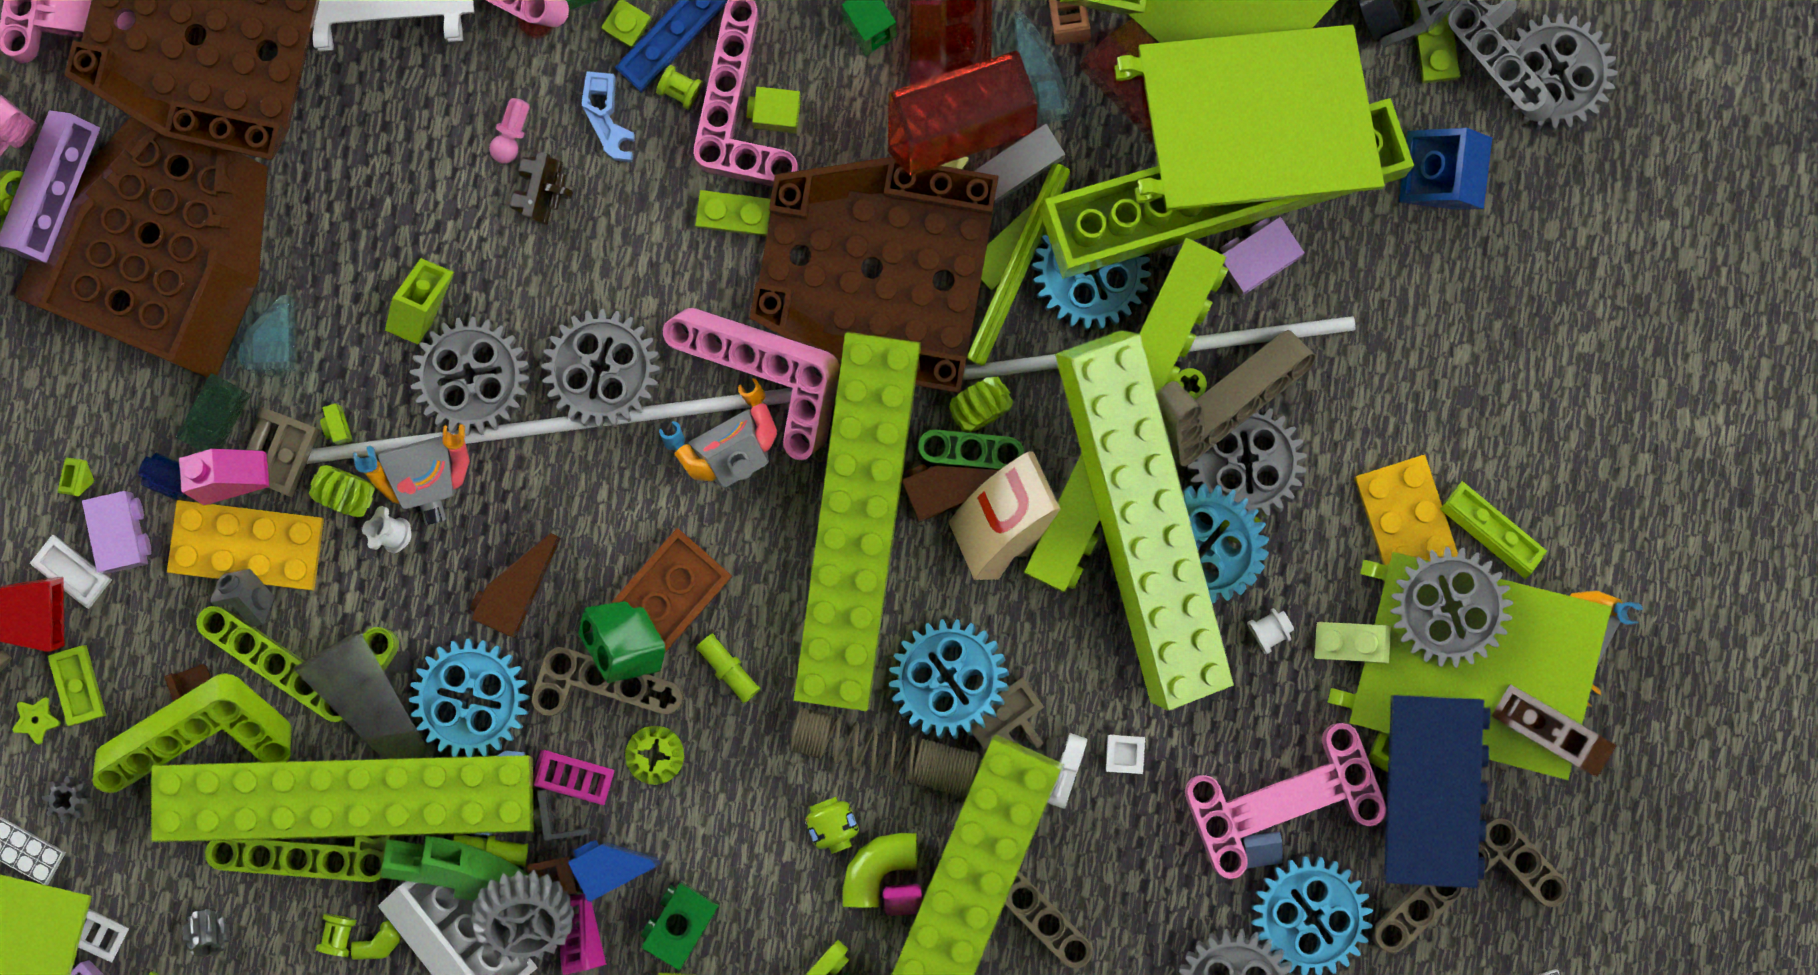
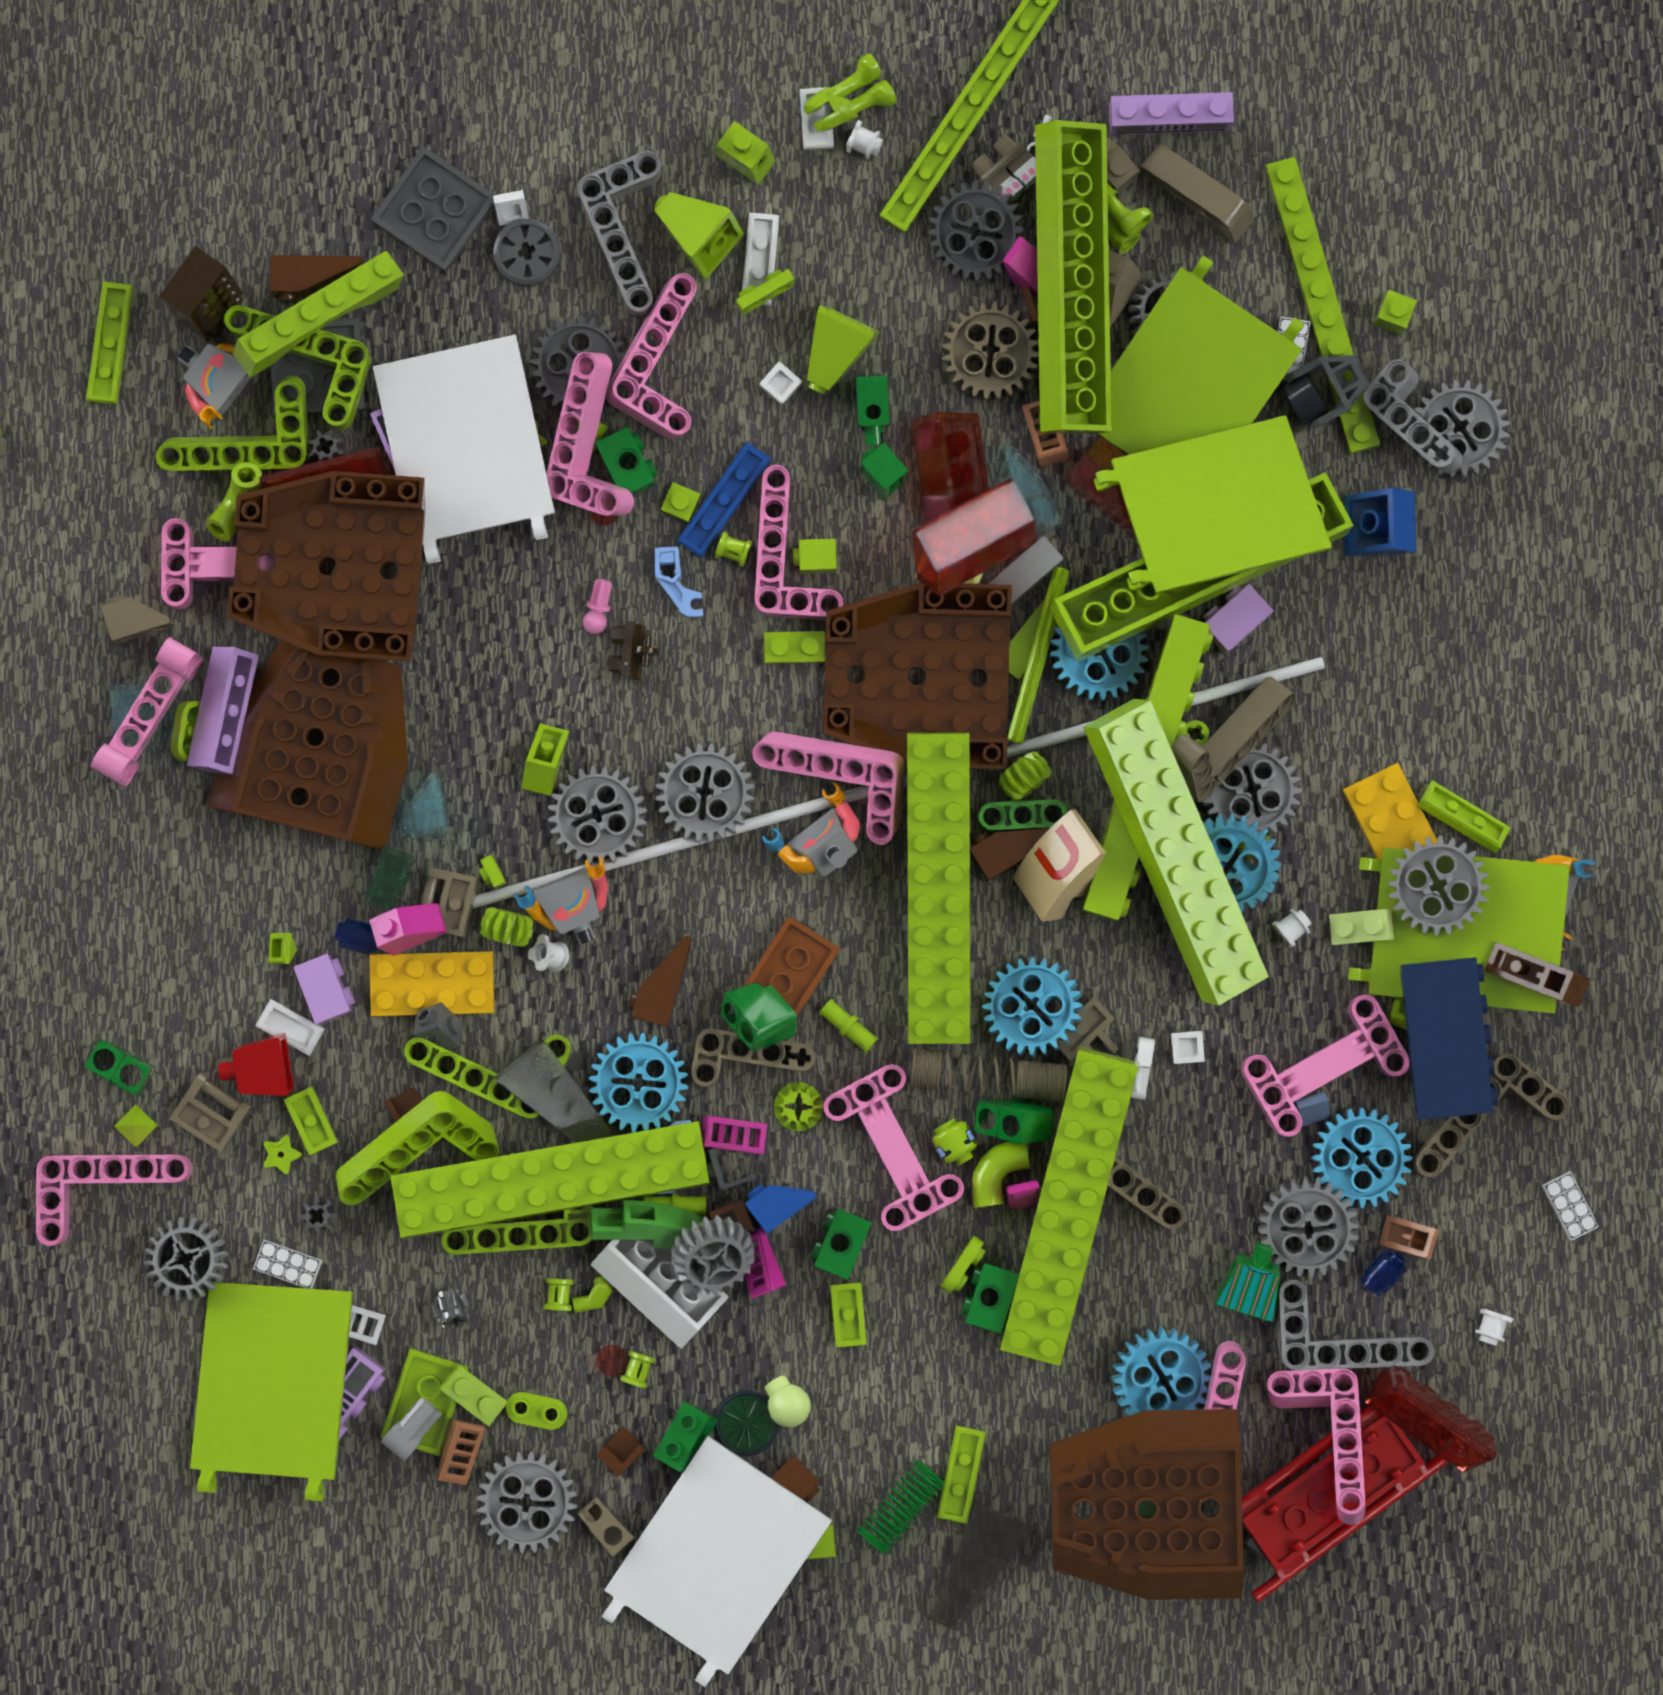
camera: 10 degrees left, 0 degrees up
(758, 821) = (893, 1148): none -> bright pink beam
(928, 812) = (1033, 1119): none -> green piece

